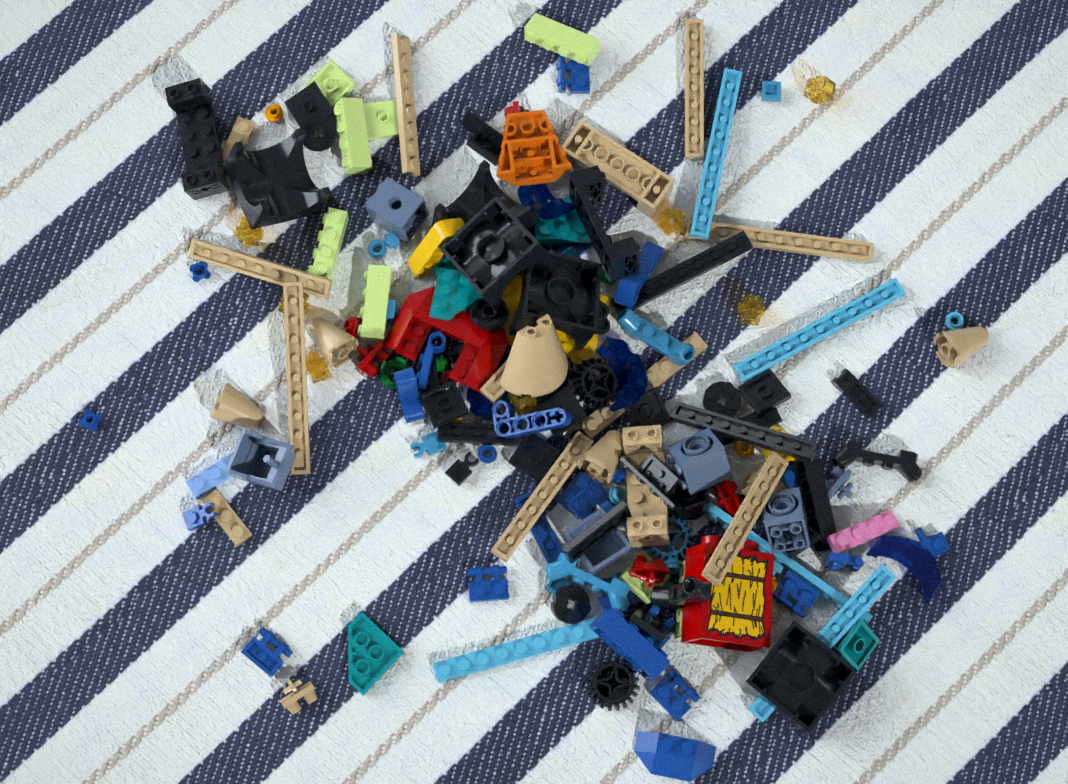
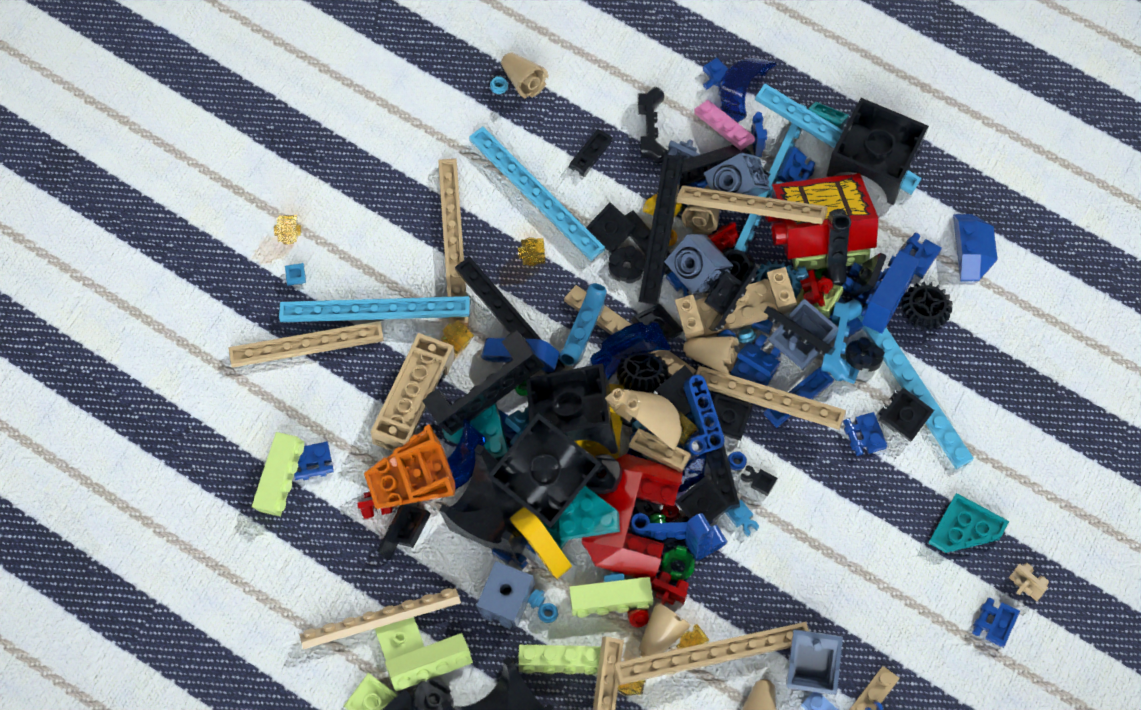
camera: 100 degrees left, 10 degrees down
(496, 625) = (905, 414): none -> black plate

